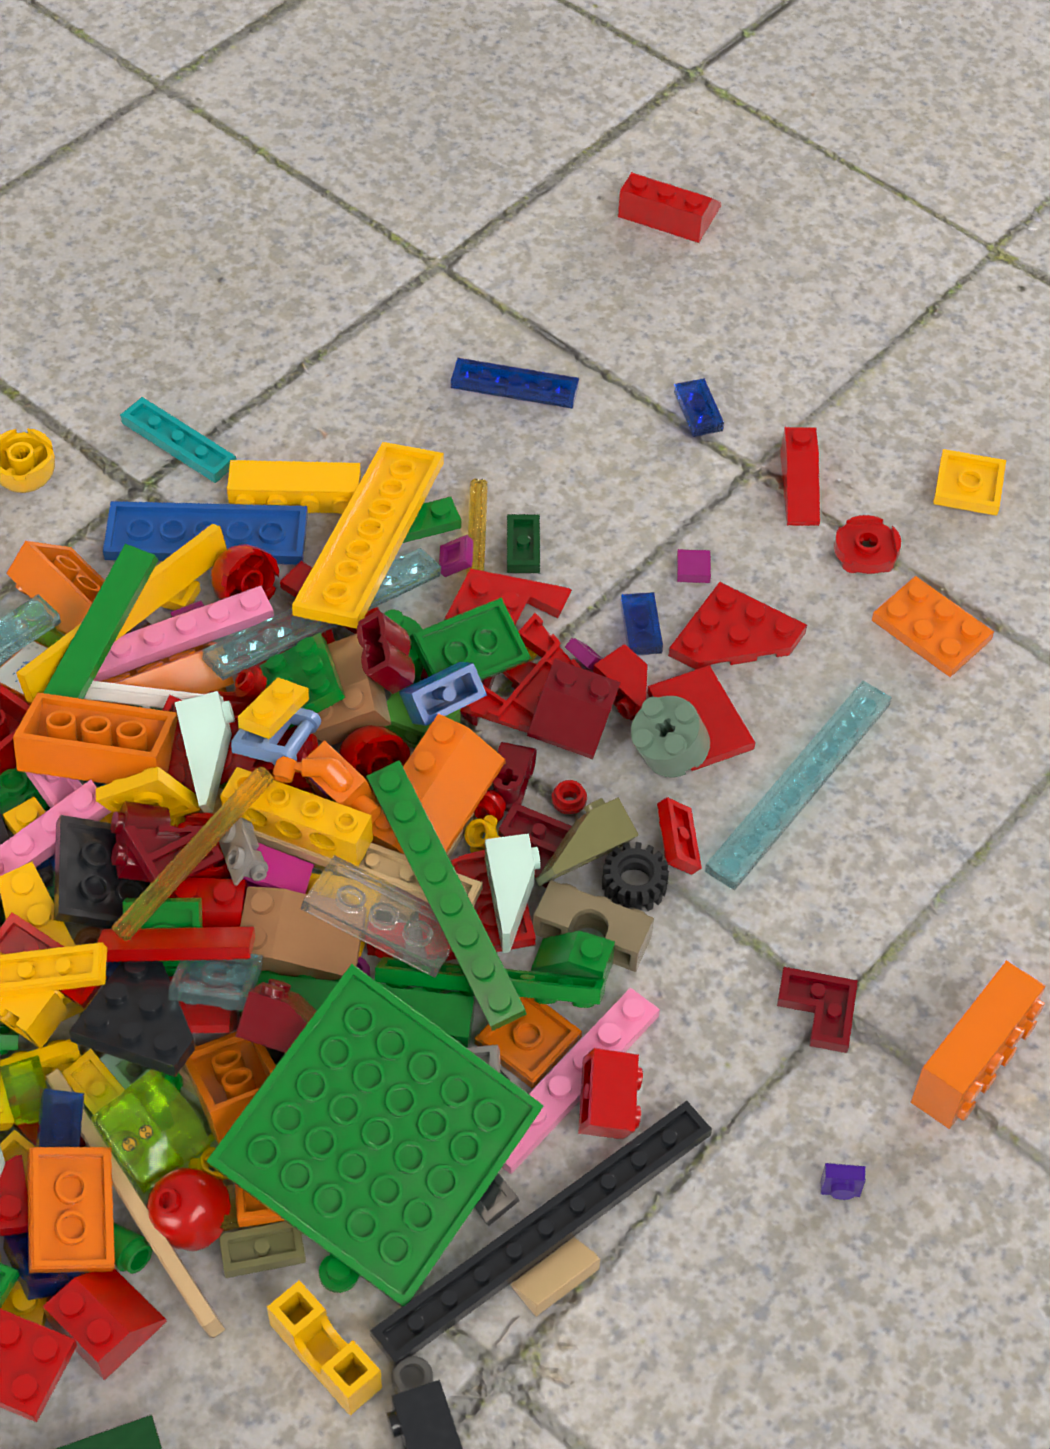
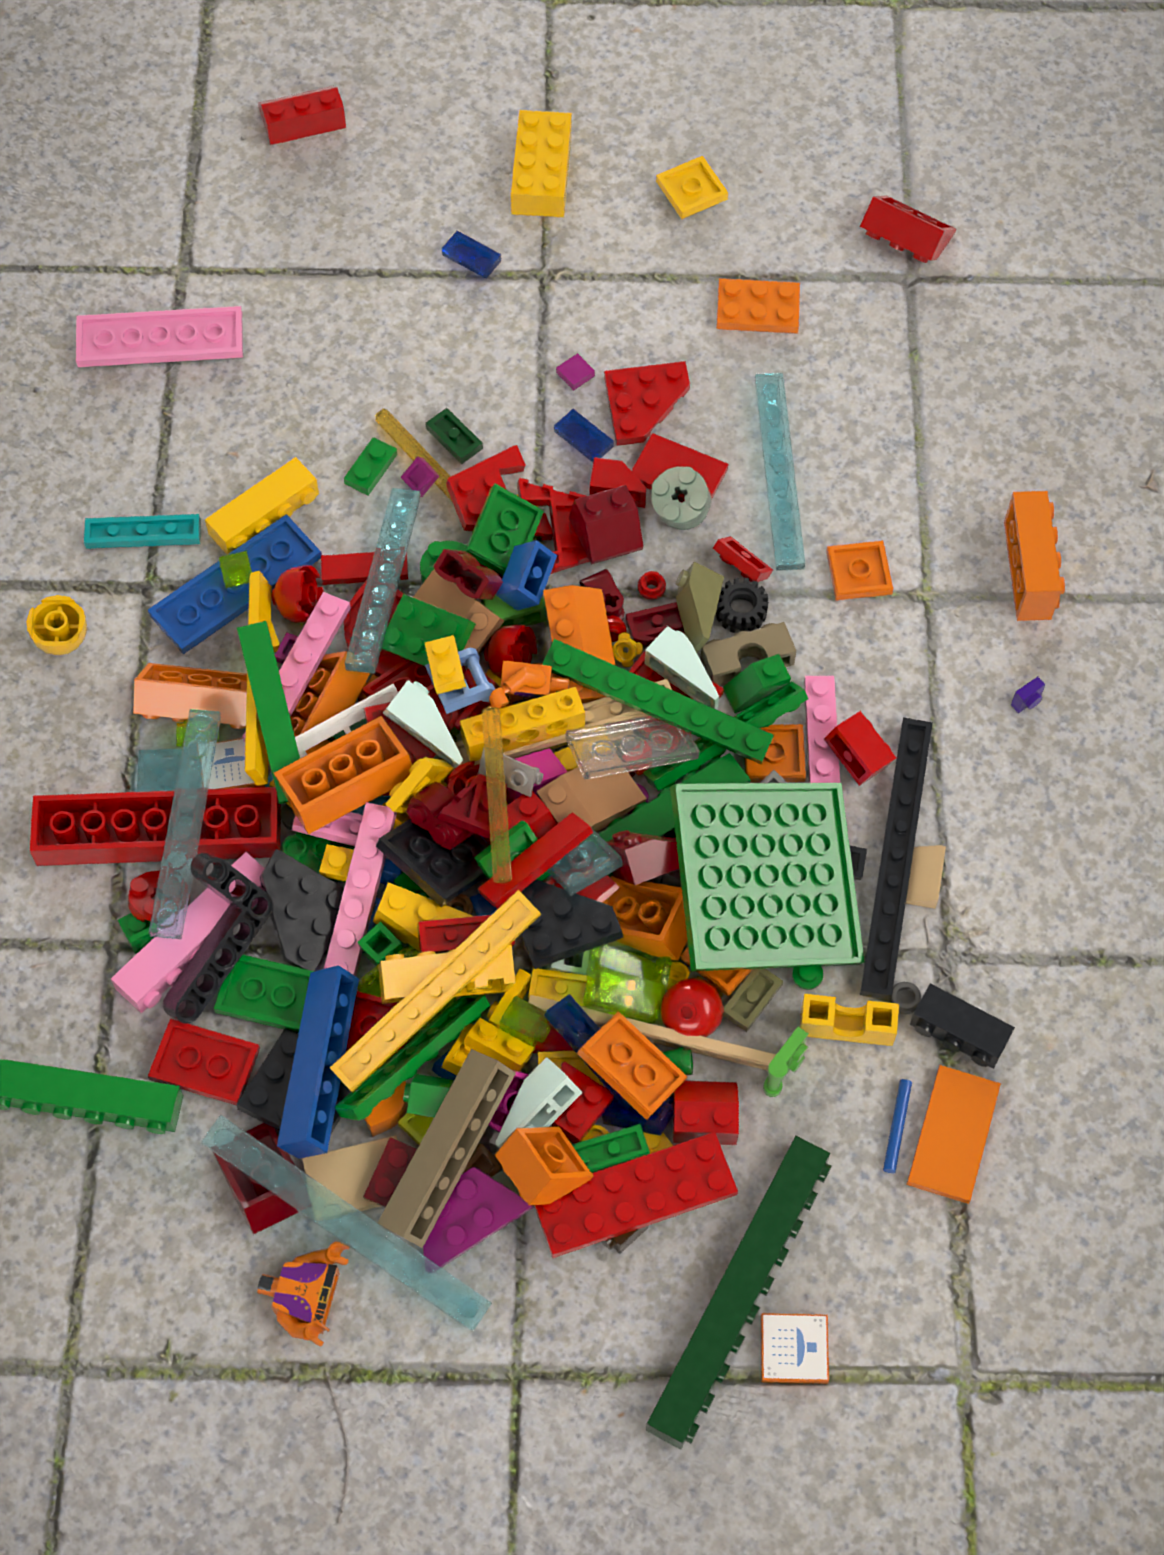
camera: 40 degrees left, 10 degrees up
(205, 513) = (235, 569): none -> clear neon green bracket
(230, 1328) = (788, 1058): none -> bright green plate
(250, 683) = (396, 660): red plate -> none
(360, 301) = (159, 336): none -> bright pink plate
(368, 535) = (359, 502): yellow plate -> none
(515, 383) = (331, 323): clear blue plate -> none
(583, 653) = (573, 483): magenta tile -> none
(789, 931) = (859, 570): none -> orange tile
(801, 476) = (583, 256): red slope -> none
(828, 998) = (921, 594): dark red plate -> none
(841, 372) = (541, 163): none -> yellow brick
(863, 559) = (670, 291): red plate -> none

